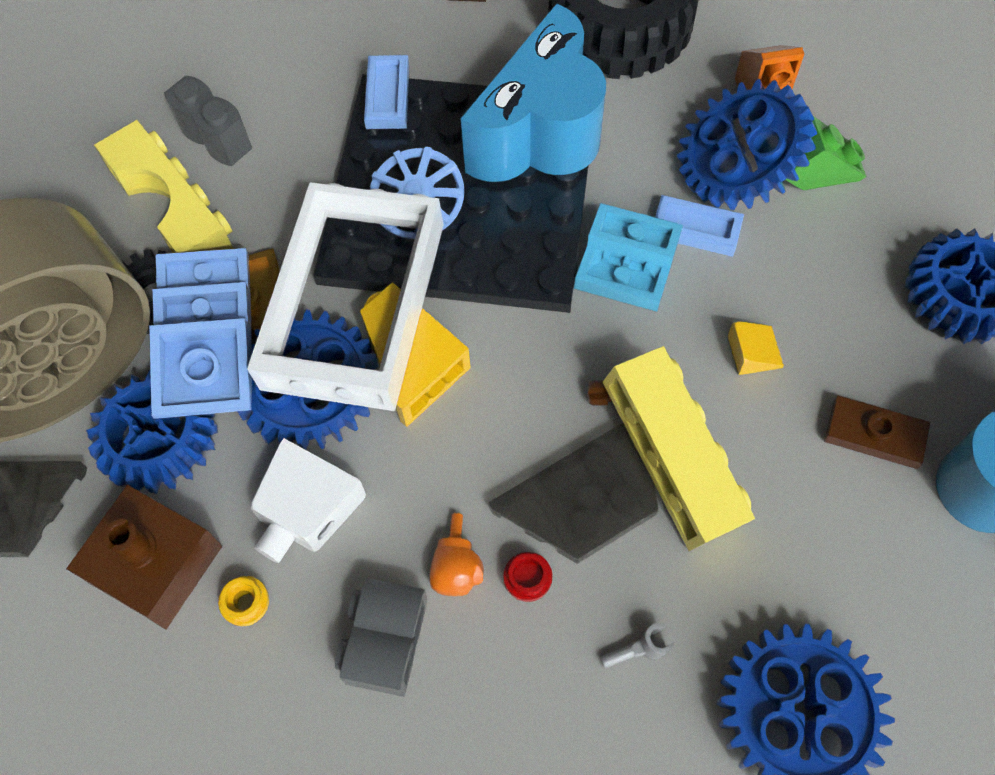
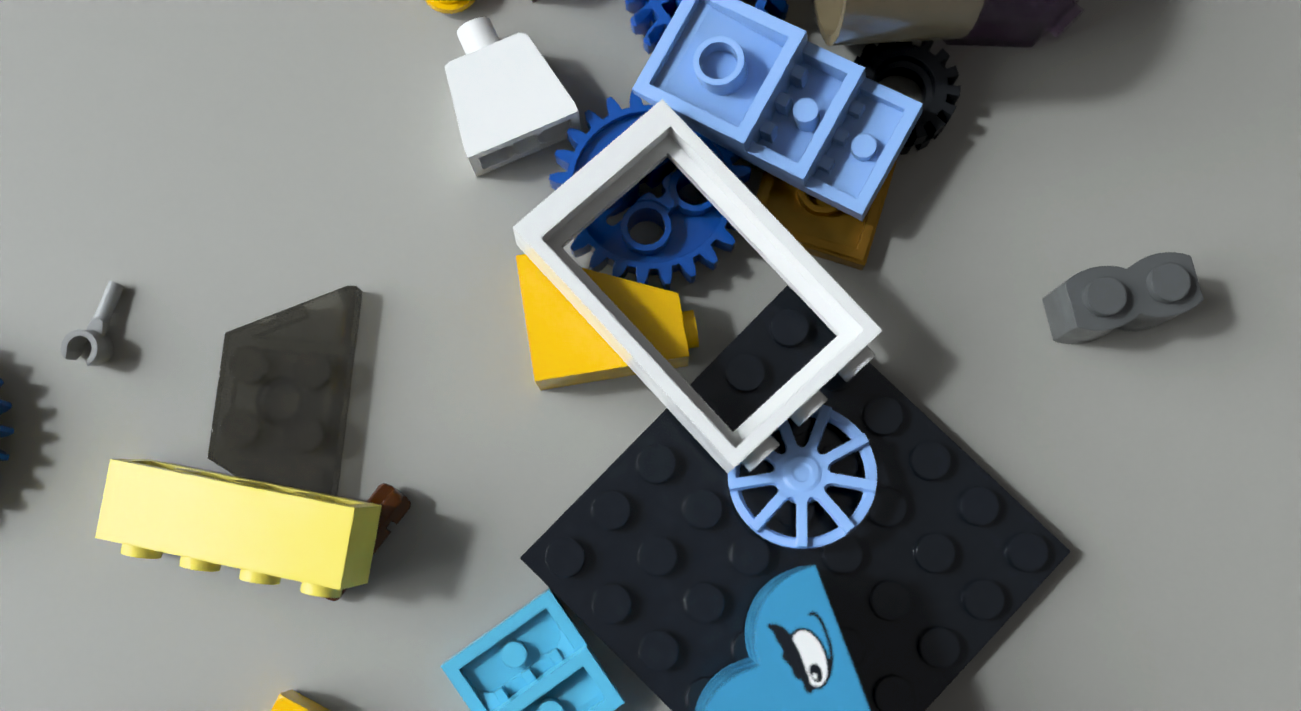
camera: 125 degrees right, 15 degrees up
(141, 166) = (956, 184): light yellow arch -> none
(383, 636) = (300, 86): dark grey brick -> none
(387, 92) = (1002, 554): light blue tile -> none
(454, 563) = (322, 206): orange piece -> none
(527, 576) = (251, 271): red plate -> none

